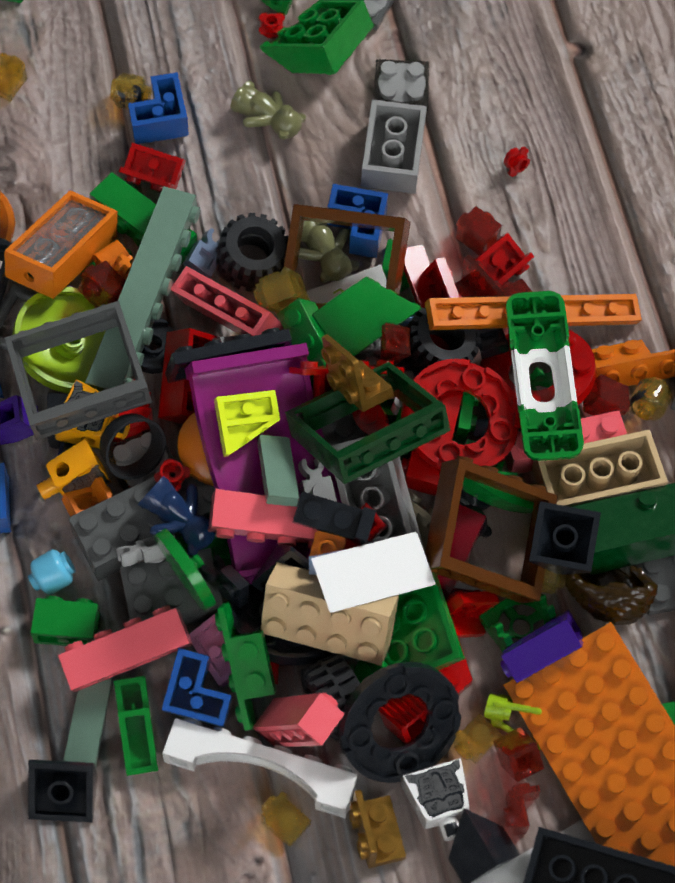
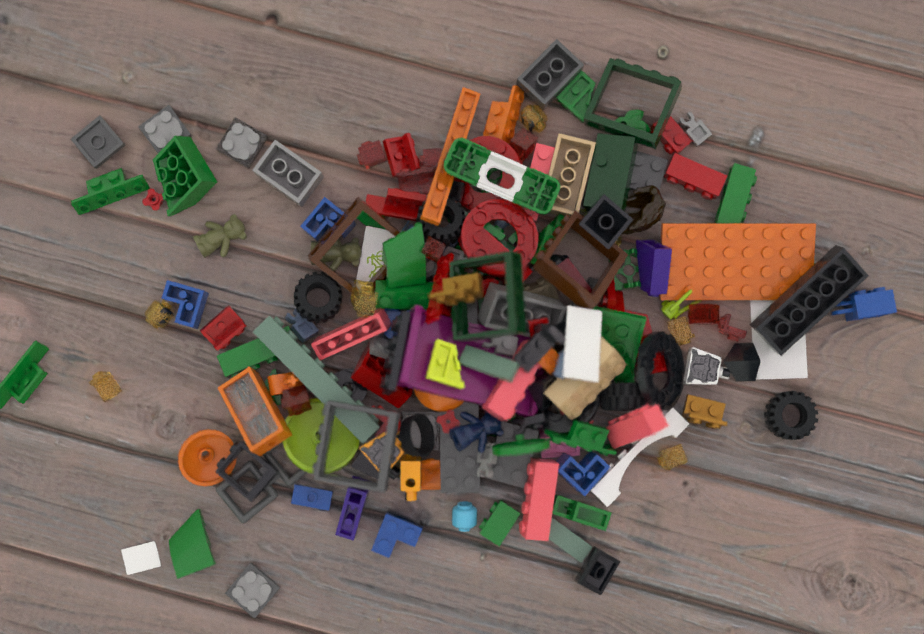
camera: 60 degrees left, 20 degrees up
(516, 160) = (335, 104): red plate -> none

